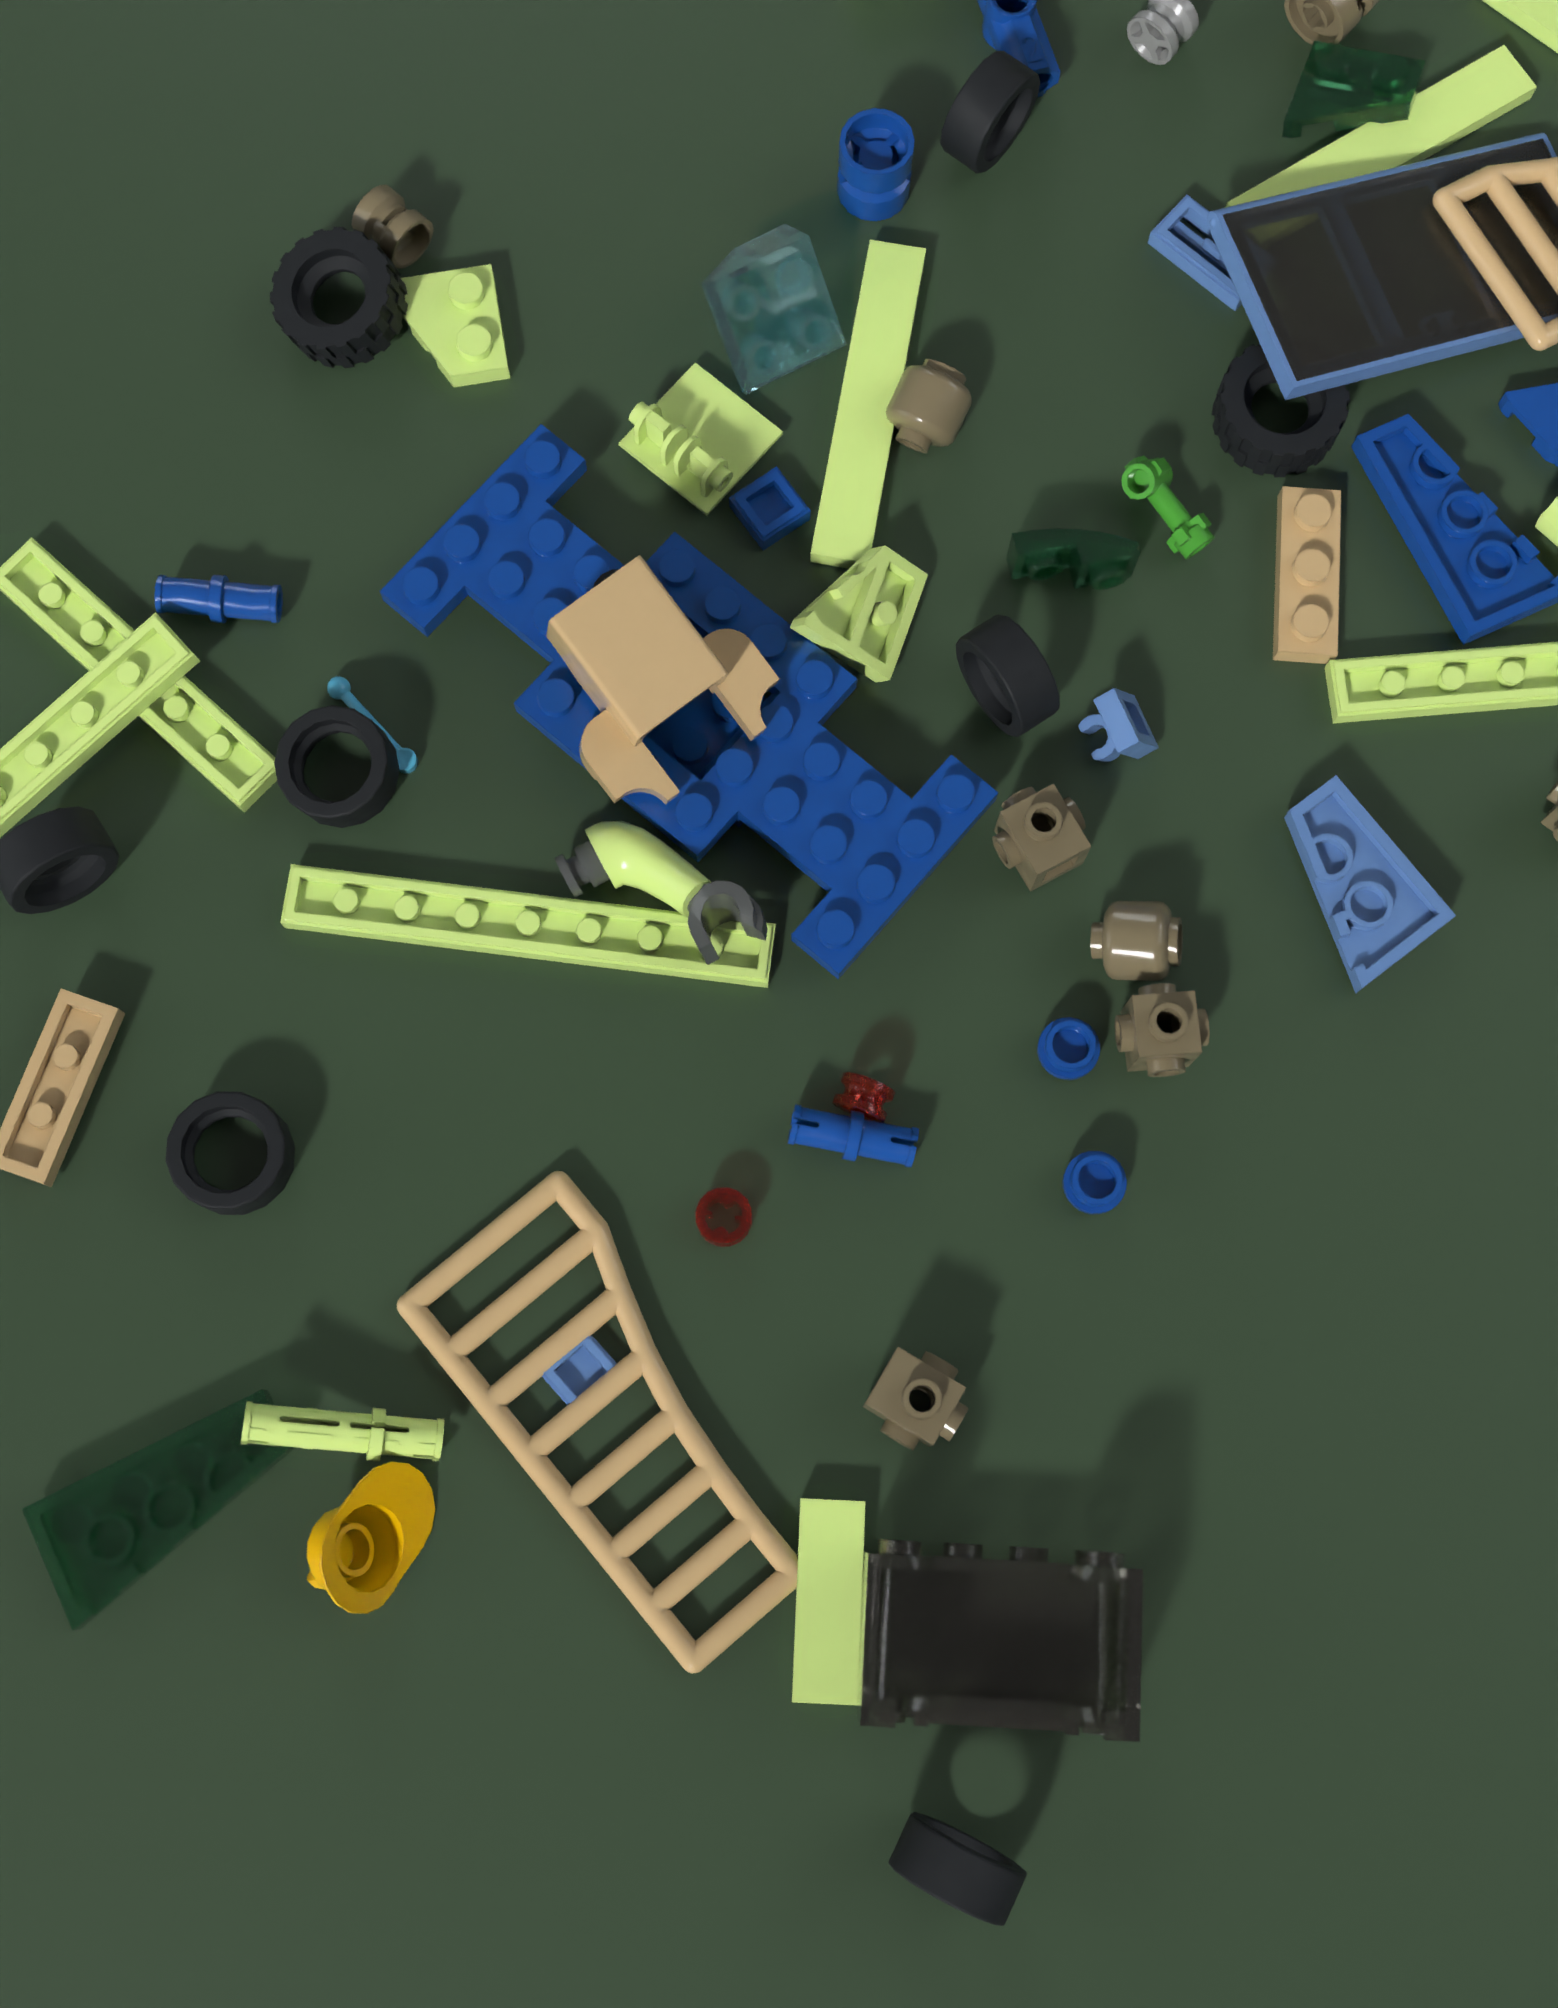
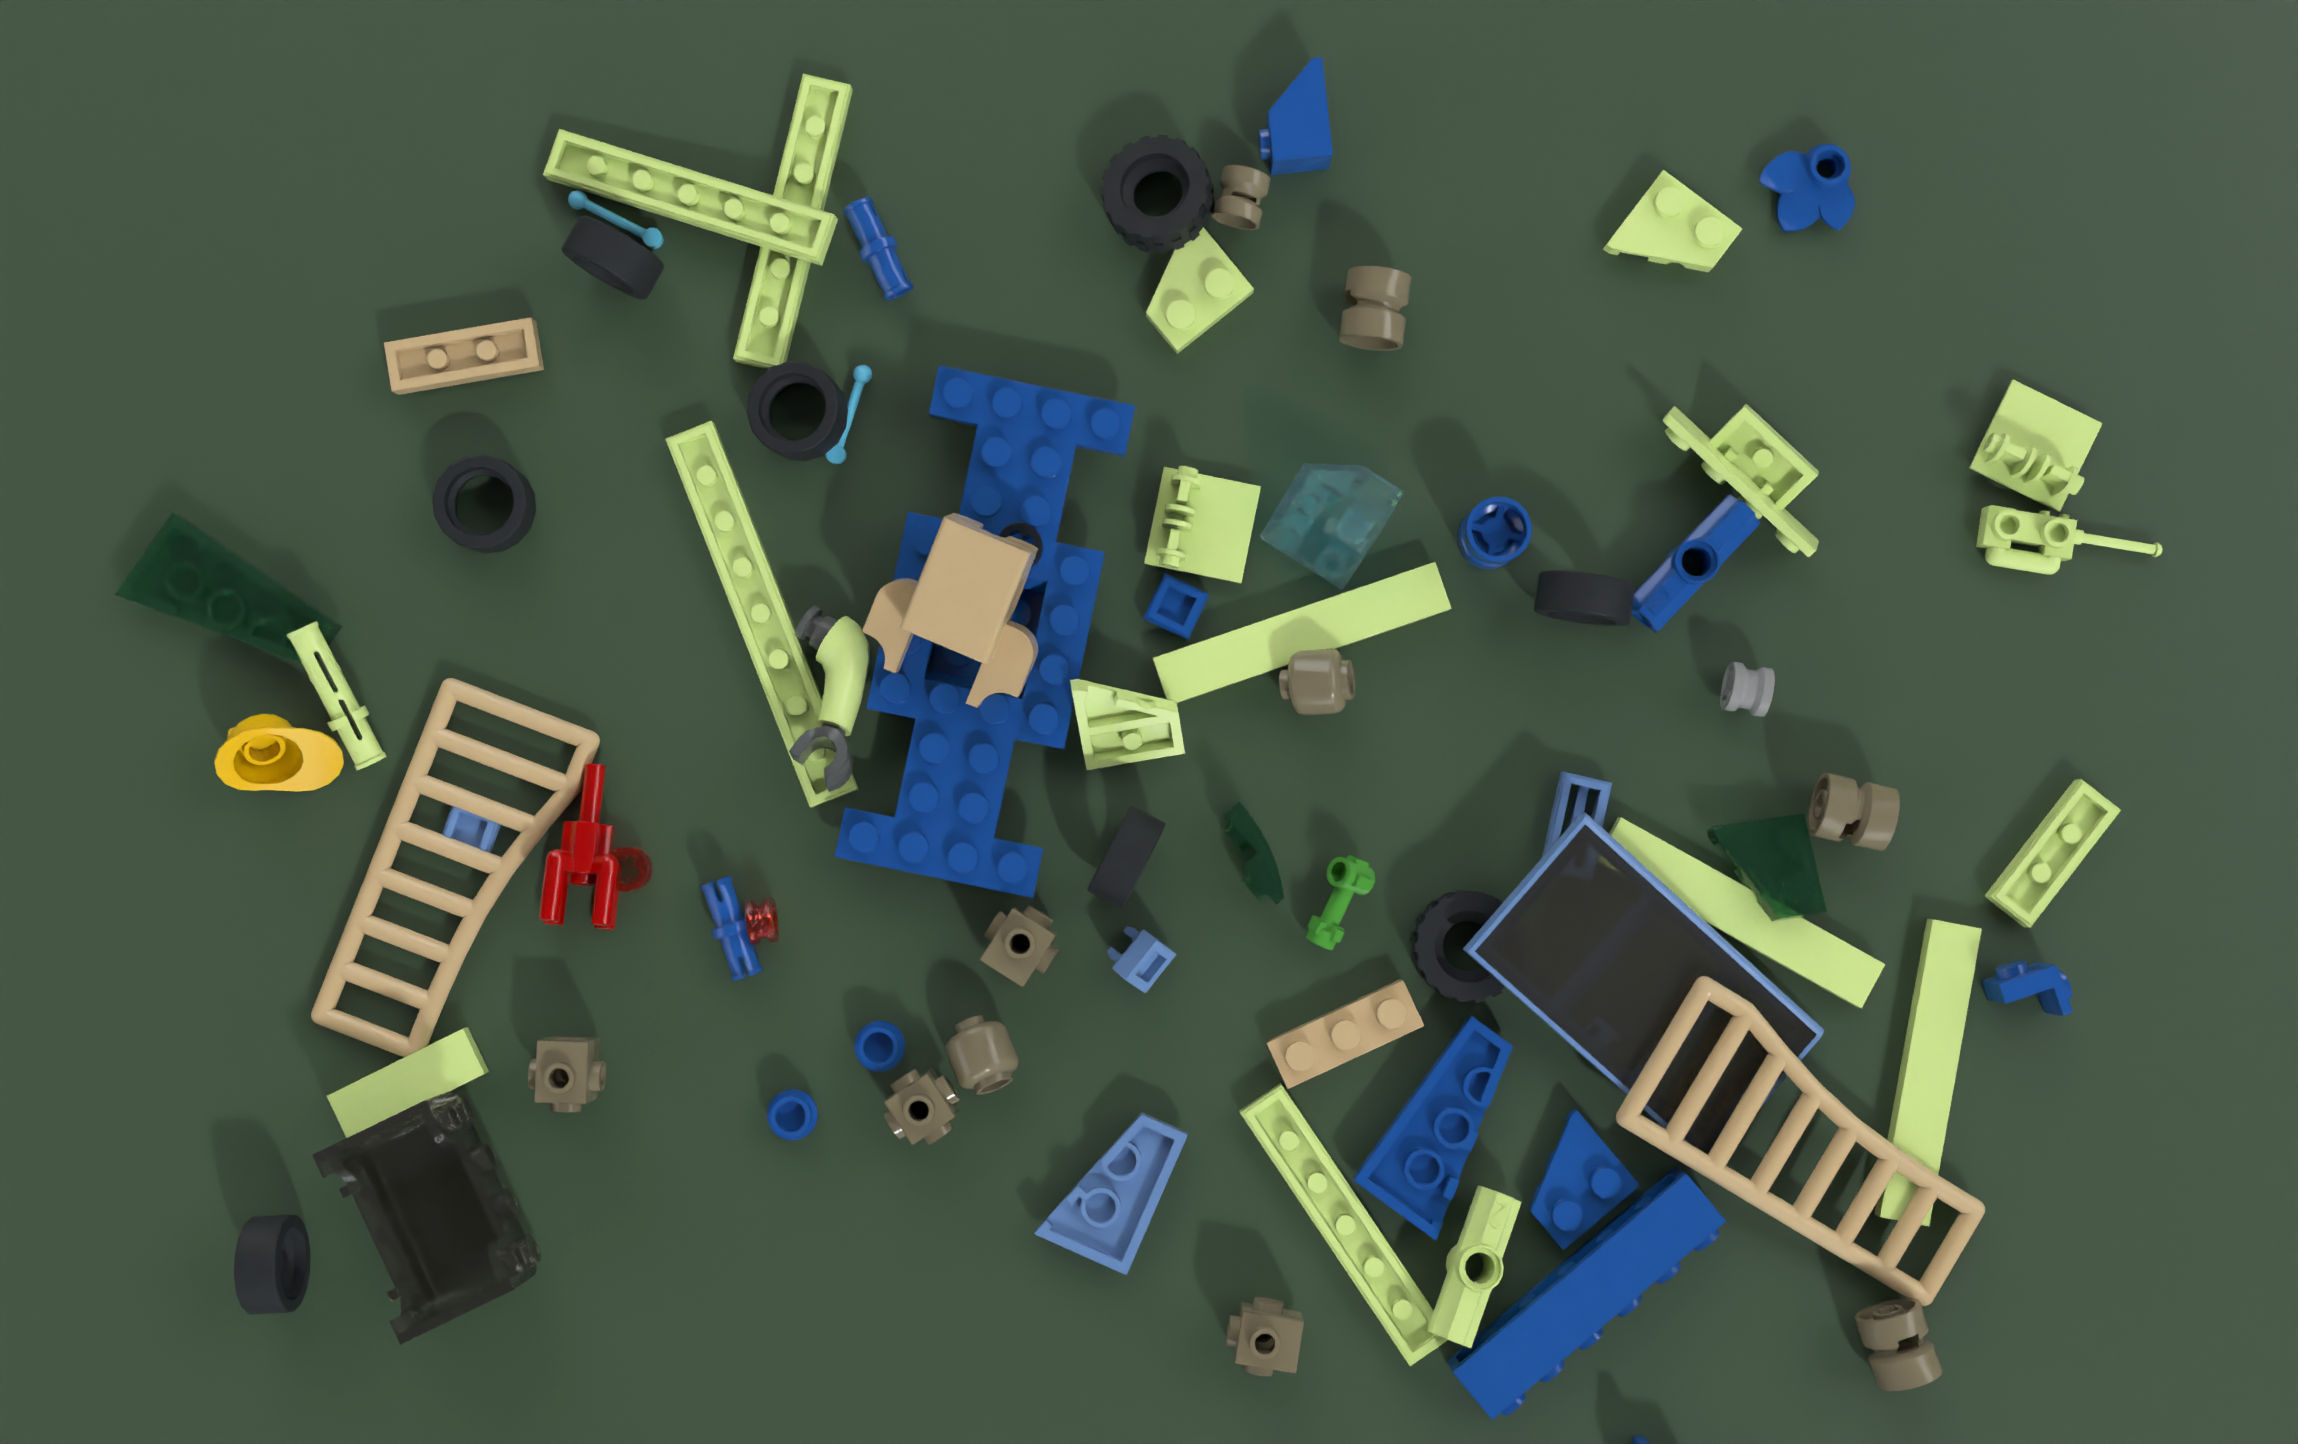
camera: 60 degrees right, 10 degrees up
(359, 134) = (1299, 126): none -> blue slope
(587, 162) = (1375, 303): none -> dark tan wheel
(690, 1256) = (583, 860): none -> red plant

